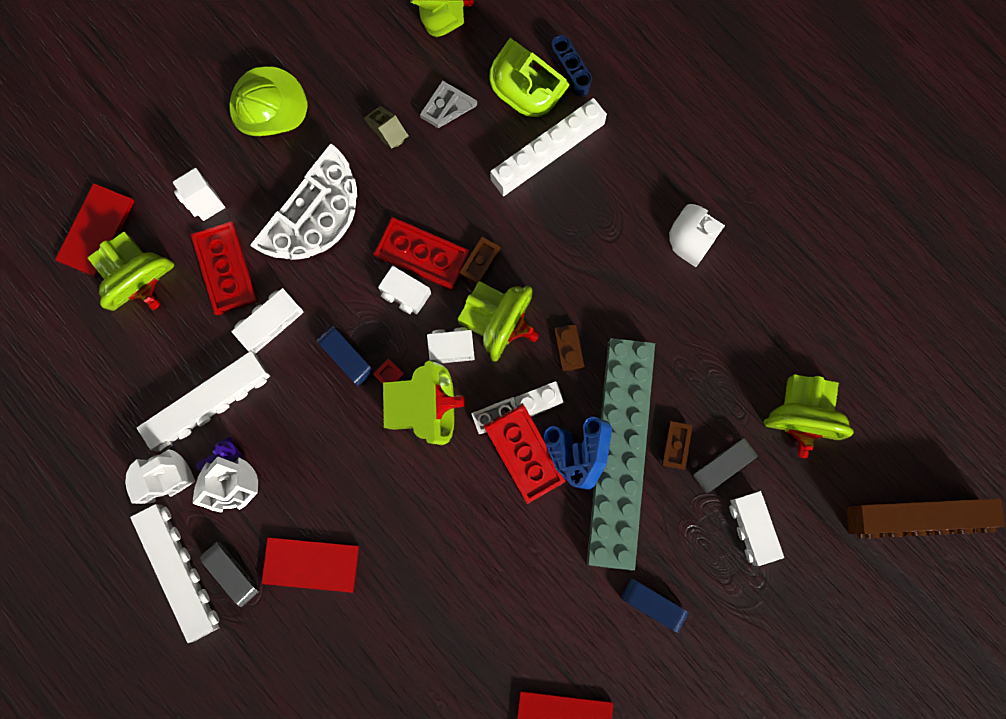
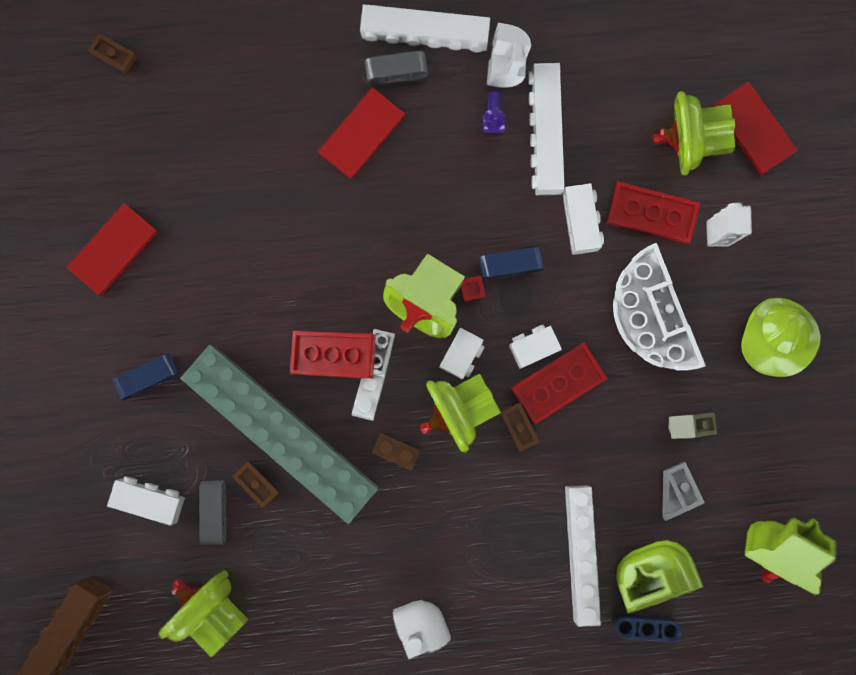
camera: 125 degrees right, 5 degrees up
(225, 485) = (466, 104): white brick -> none
(581, 462) = (292, 392): blue connector -> none

